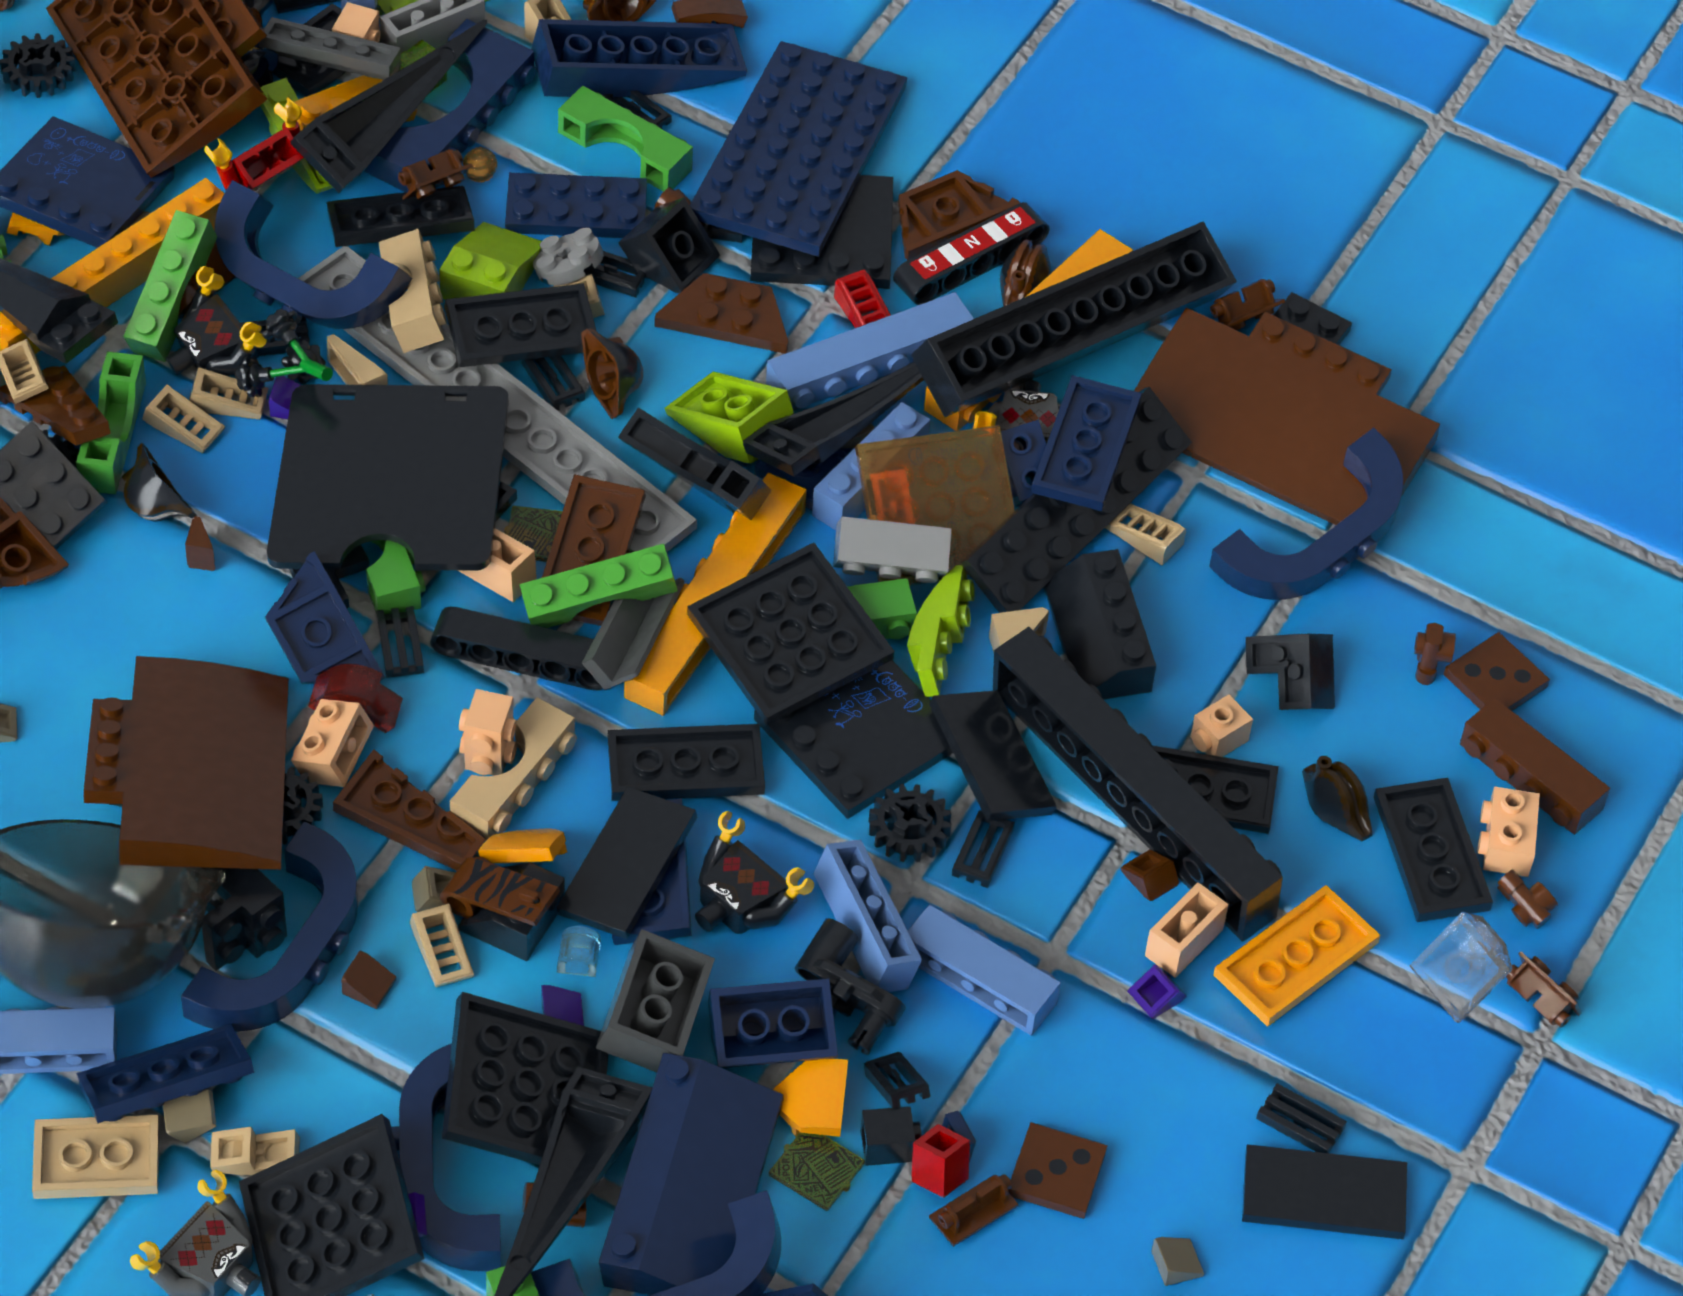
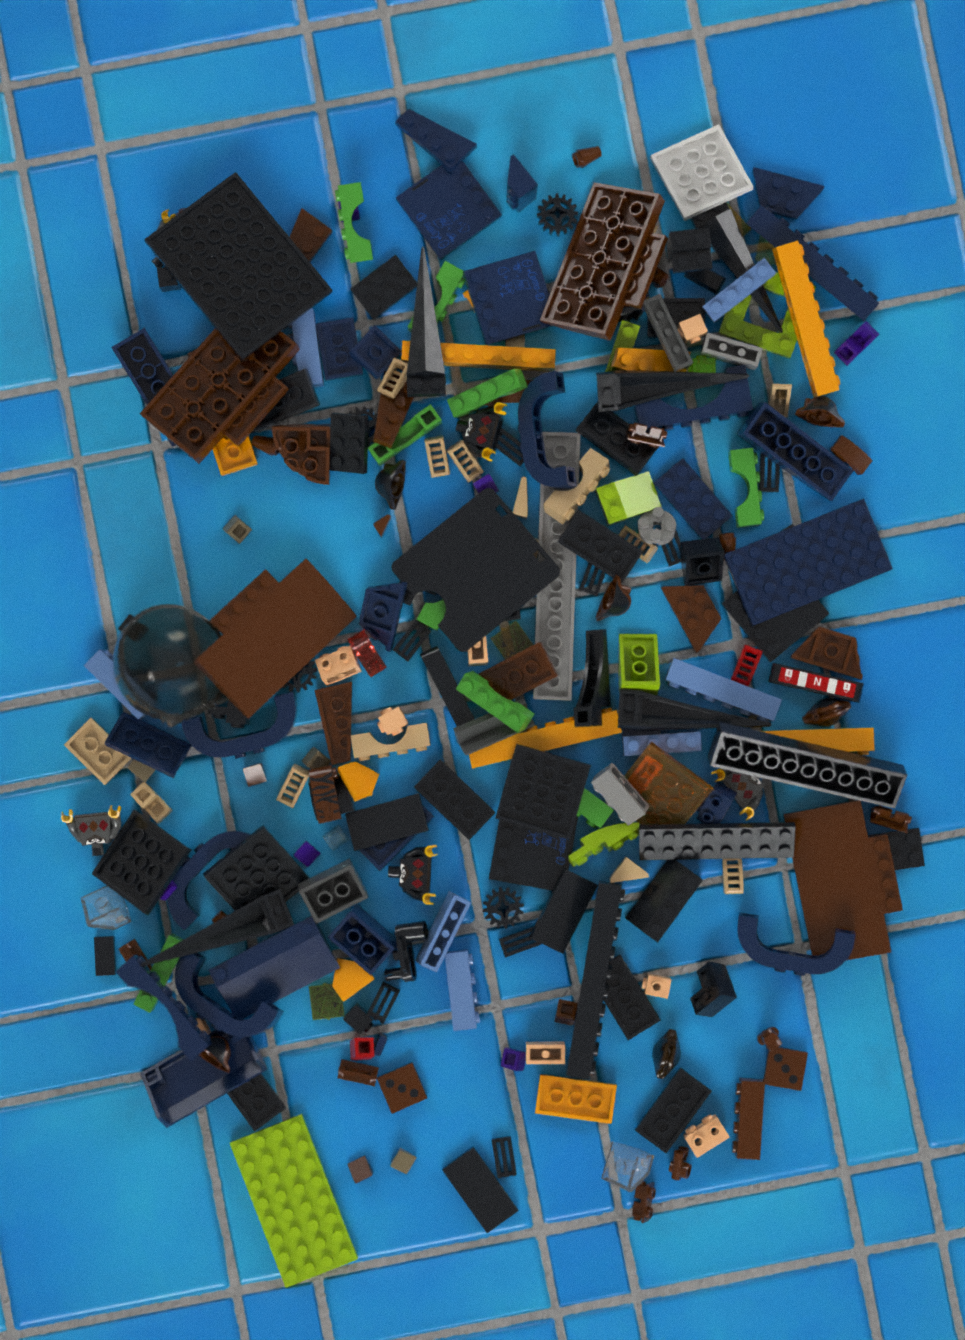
camera: 55 degrees right, 35 degrees up
(265, 159) = (582, 364): red torso -> none
(301, 363) = (504, 474): black plant -> none
(483, 163) = (676, 441): clear orange plate -> none
(1086, 443) = (737, 830): dark blue plate -> none

